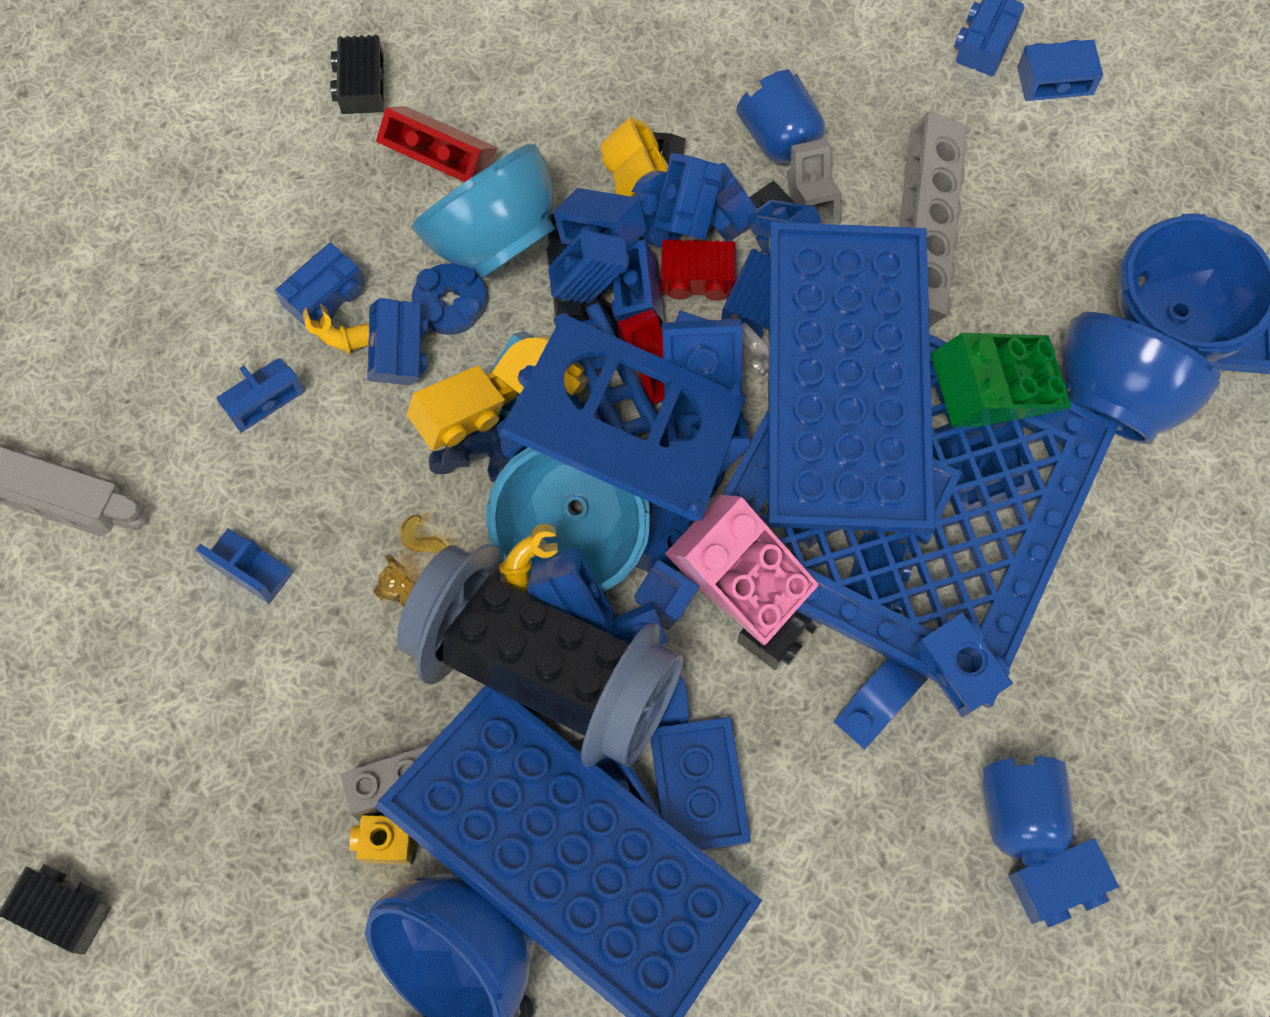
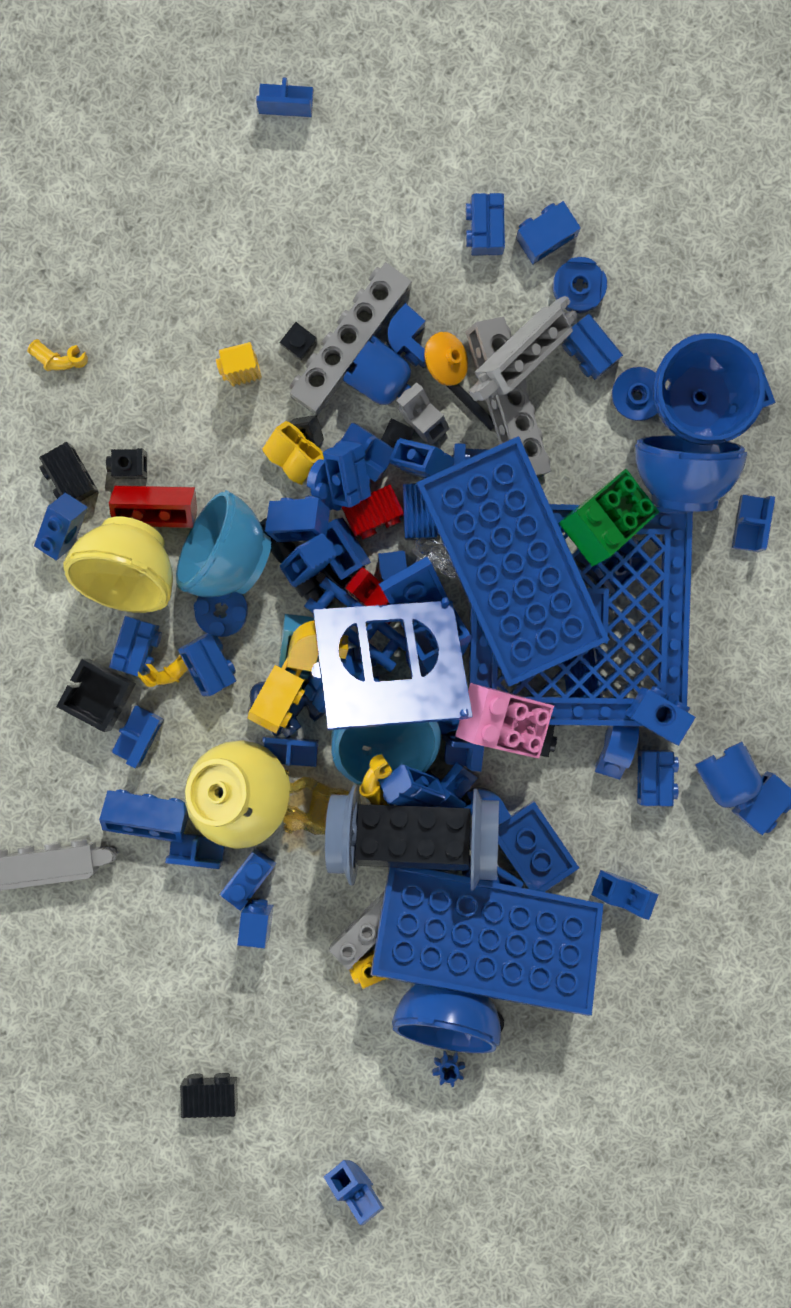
camera: 25 degrees left, 20 degrees up
(206, 486) = (144, 816): none -> blue brick
(245, 321) = (97, 696): none -> black piece
(263, 688) = (255, 924): none -> blue brick
(289, 630) = (248, 879): none -> blue brick
(315, 113) = (60, 526): none -> blue brick
(321, 476) = (249, 779): none -> light yellow piece
(349, 166) = (121, 566): none -> light yellow piece
(435, 94) = (134, 470): none -> black brick
(440, 497) = (293, 750): none -> blue panel
(623, 42) = (238, 364): none -> yellow brick
(705, 59) = (298, 341): none -> black plate
(799, 911) = (625, 894): none -> blue brick
(813, 55) = (383, 279): none -> light grey brick
(838, 97) = (401, 334): none -> blue brick
(871, 191) = (472, 405): none -> black bar
(873, 143) = (446, 358): none -> light orange dish
(918, 769) = (656, 778): none -> blue brick
(973, 159) = (524, 351): none -> light grey hinge
(1060, 208) = (591, 348): none -> blue brick
(1068, 157) = (583, 269): none -> blue plate
(1096, 269) = (629, 381): none -> blue dish
(1190, 501) = (753, 523): none -> blue panel

